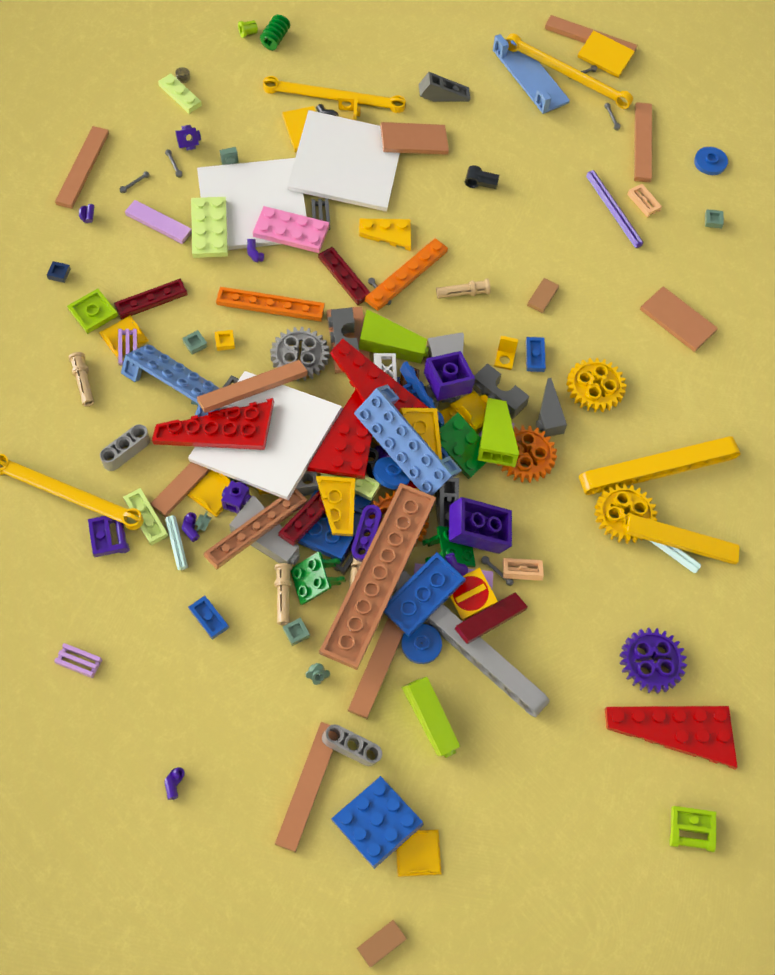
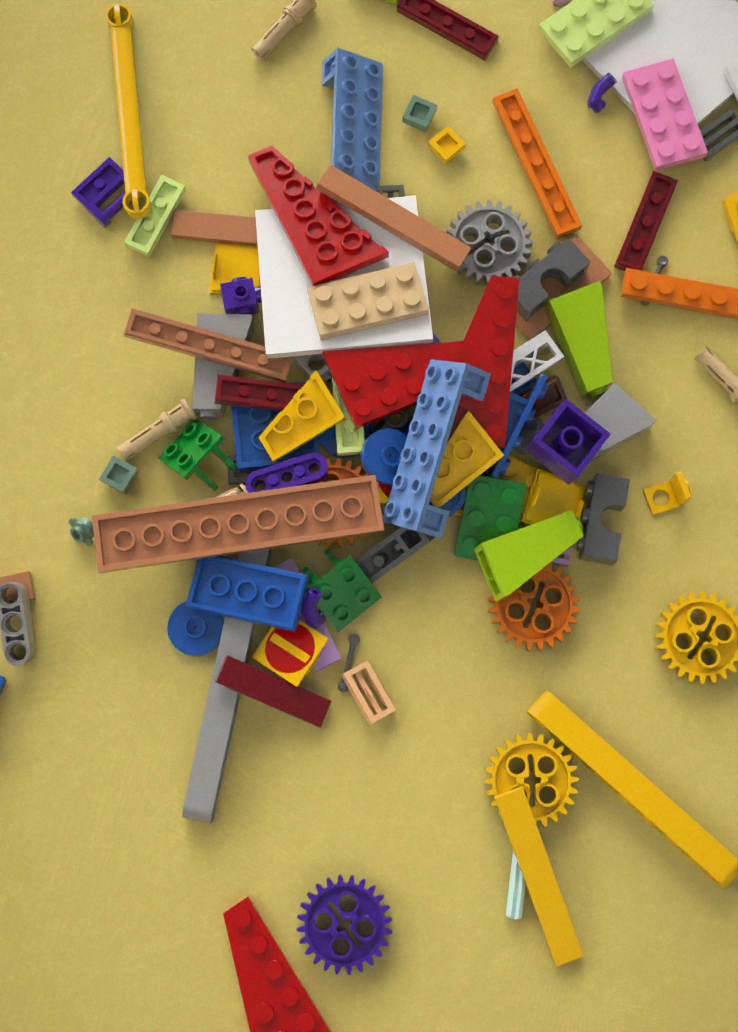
camera: 65 degrees right, 15 degrees up
(110, 335) = (375, 30): yellow piece -> none
(121, 456) = (216, 125): light grey beam -> none
(127, 332) = (377, 29): lavender tile -> none
(176, 542) = (146, 271): light aqua axle -> none
(189, 525) = (175, 271): dark purple arm -> none
(203, 521) = (188, 282): sand green plate -> none
(208, 617) = (76, 367): blue plate -> none
(293, 426) = (367, 301): none -> tan plate
(376, 670) = (126, 595): nougat tile -> none
(431, 716) = (105, 691): lime slope -> none
(480, 525) = (383, 606): dark purple brick -> none
(535, 354) = (694, 532): blue plate -> none
(551, 415) = (613, 602): dark grey slope -> none

